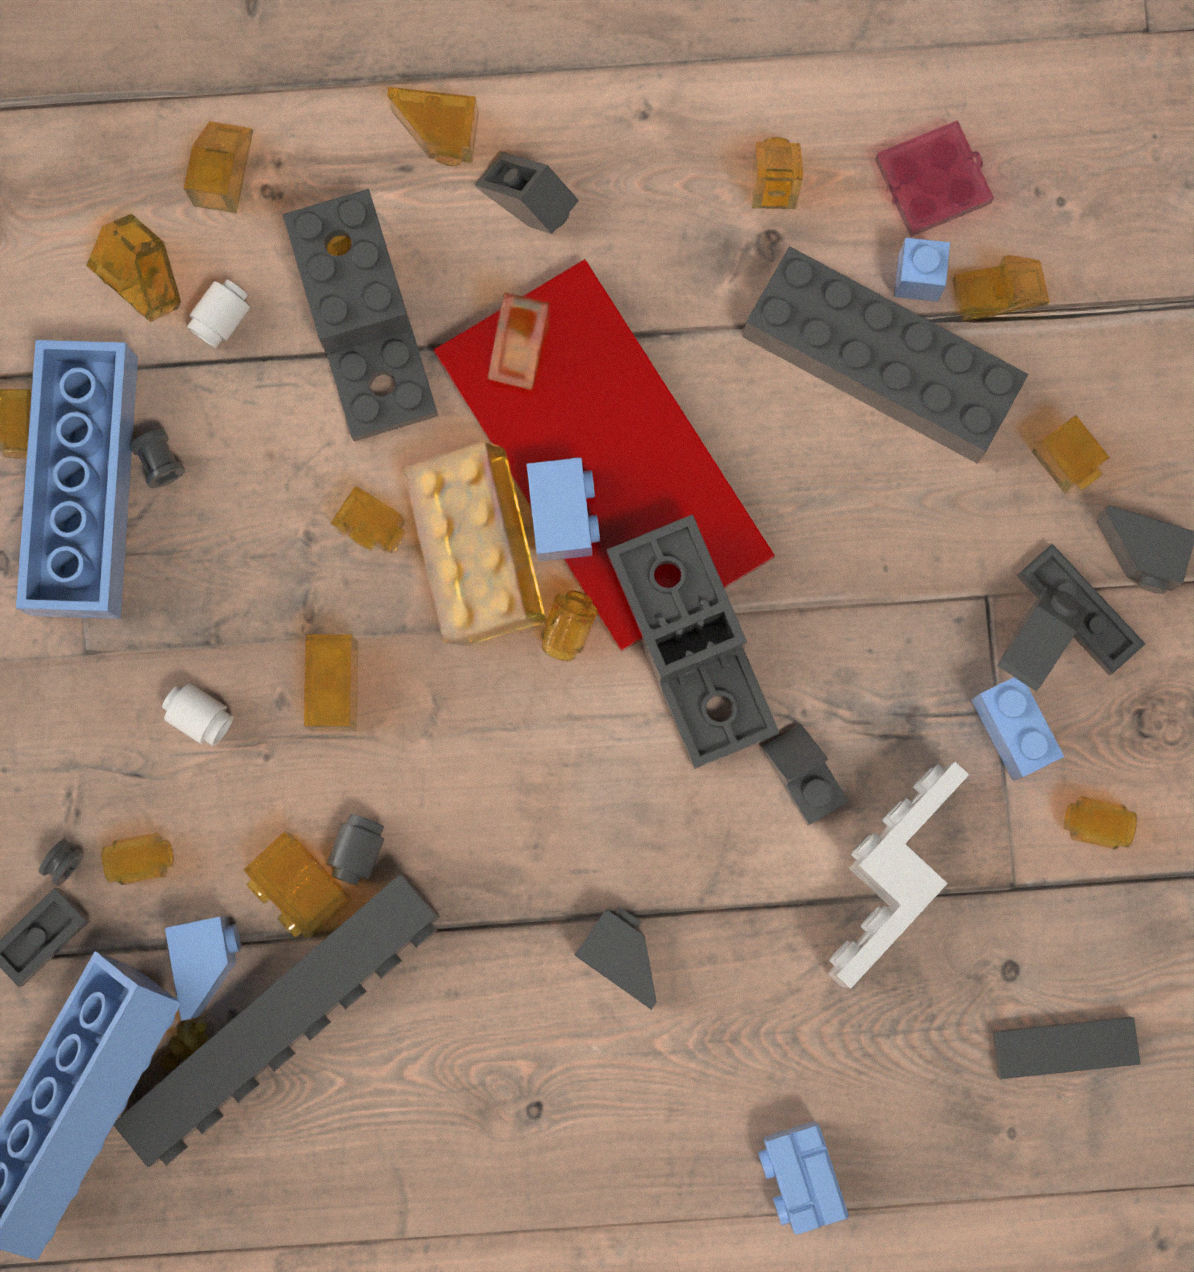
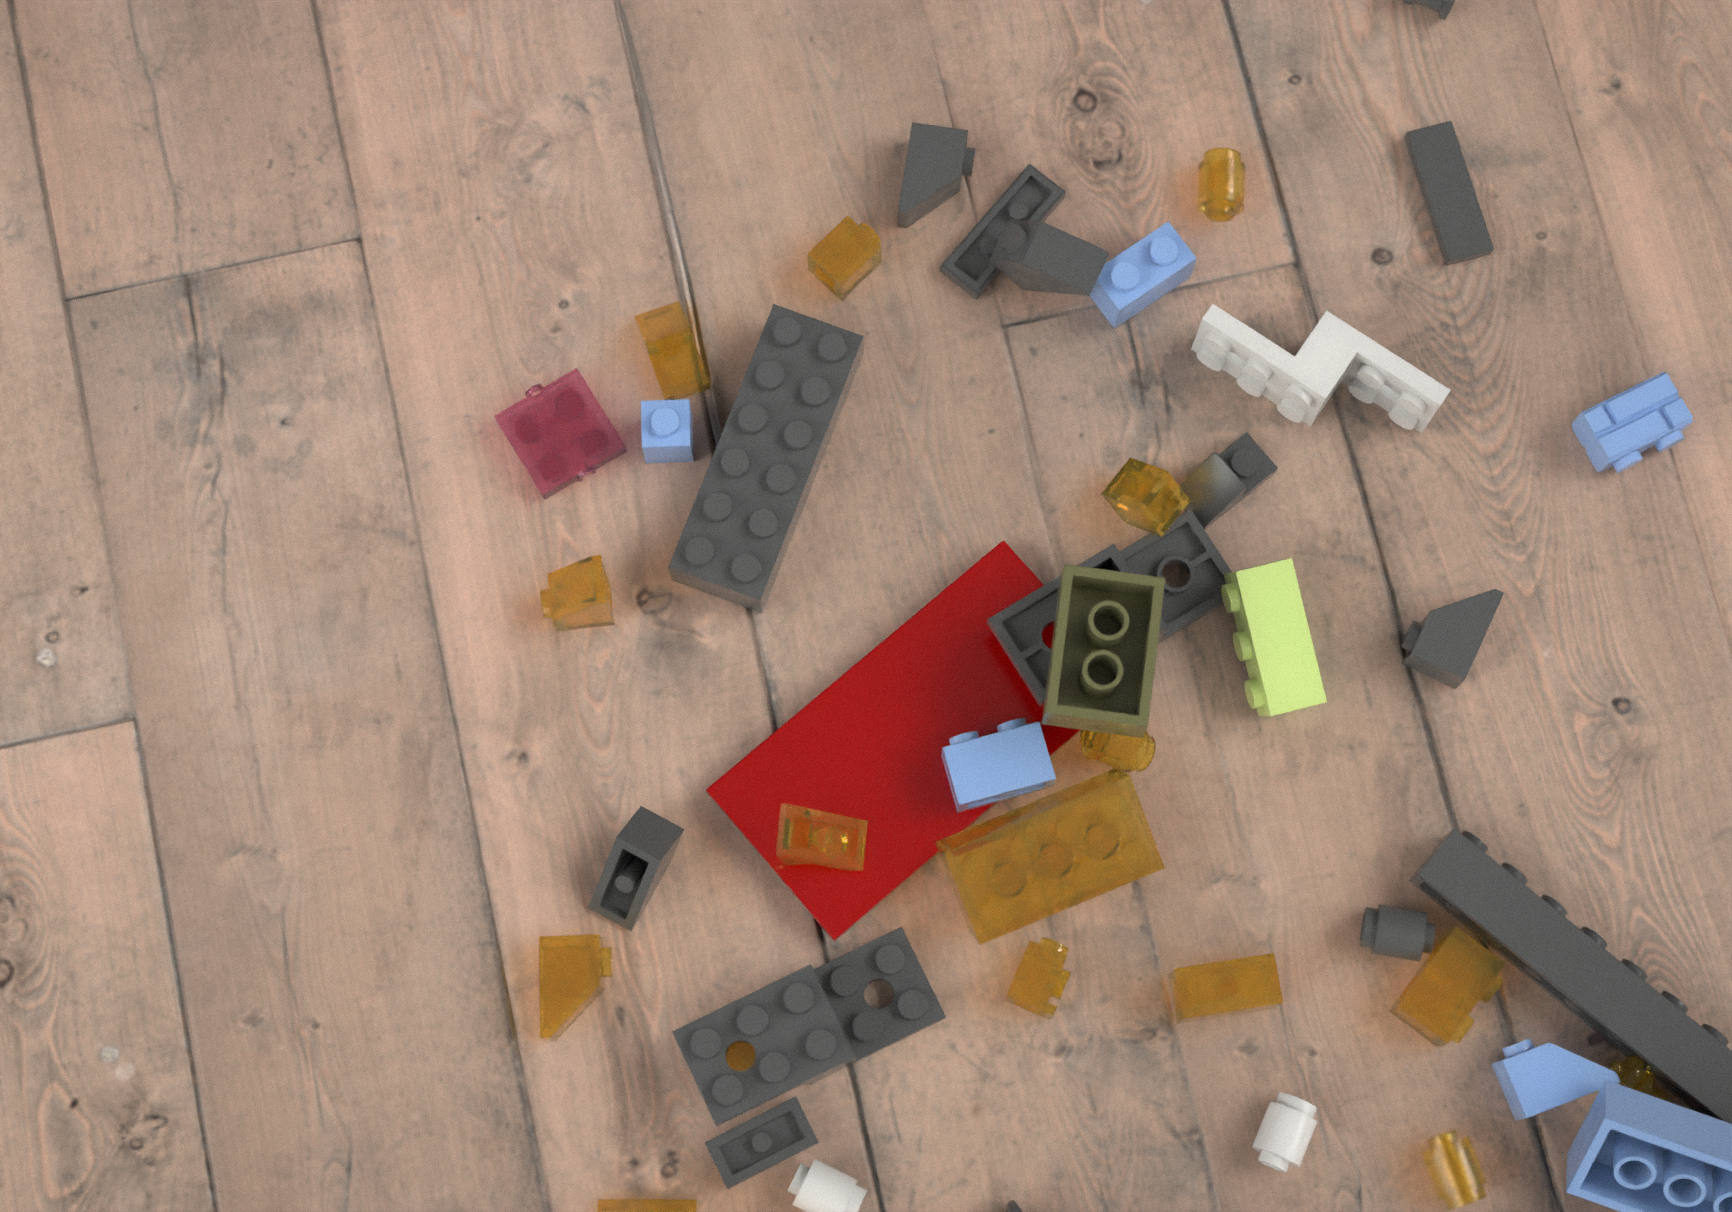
camera: 105 degrees left, 5 degrees down
(272, 266) = (761, 1142): none -> dark grey plate
(638, 603) = (1103, 651): none -> olive brick
(642, 783) = (1273, 638): none -> yellowish green brick
(795, 691) = (1145, 497): none -> clear yellow brick

